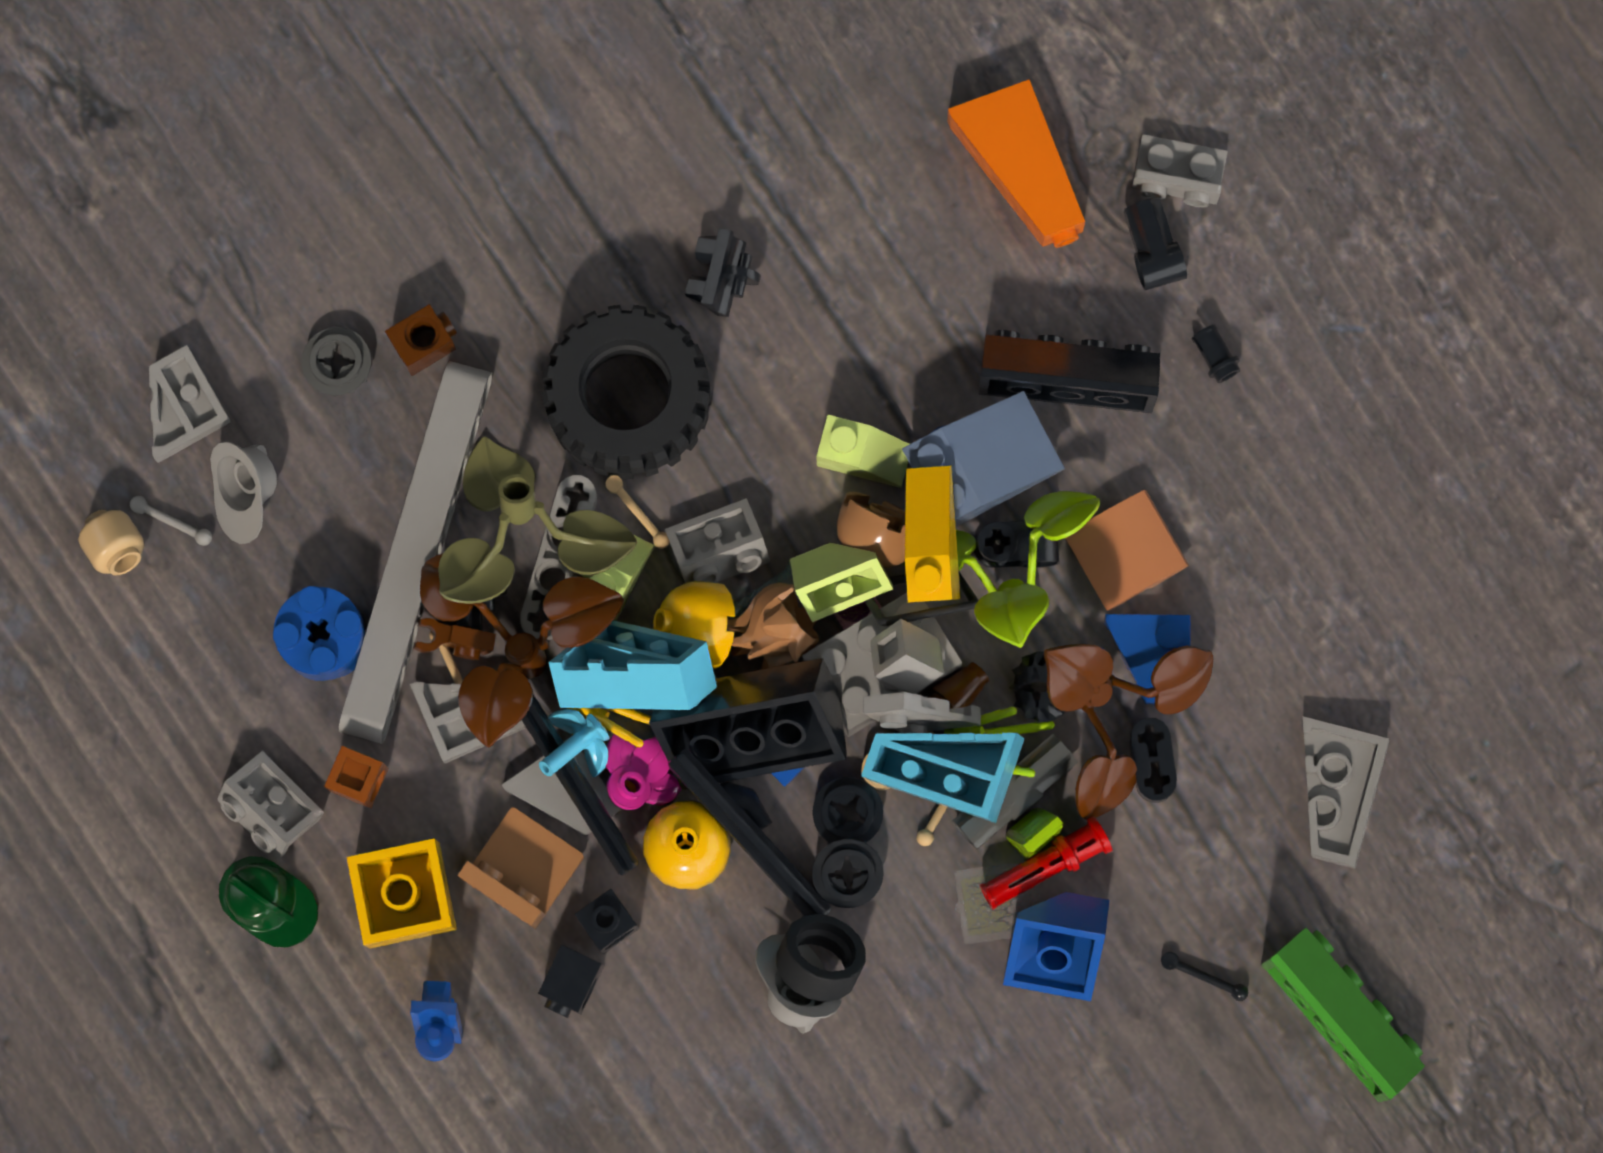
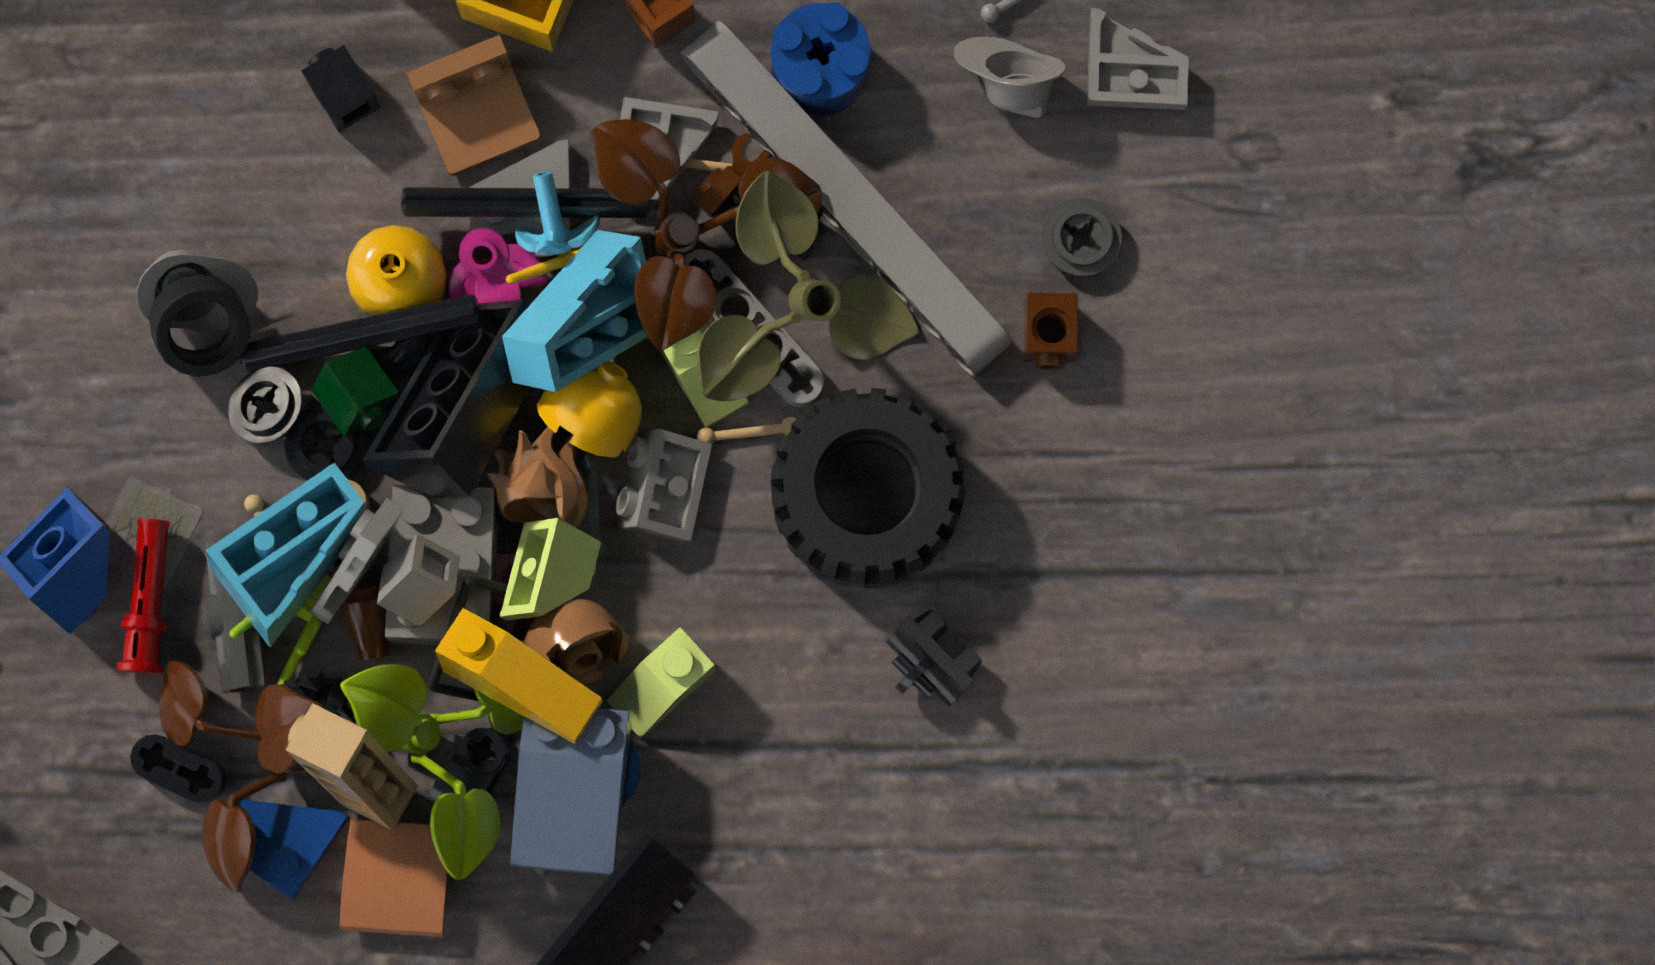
camera: 115 degrees right, 0 degrees up
(606, 921) = (371, 153): black brick -> none
(795, 809) = (355, 392): none -> dark green brick
(1034, 832) = (179, 603): lime slope -> none
(1072, 610) = (351, 765): none -> tan brick

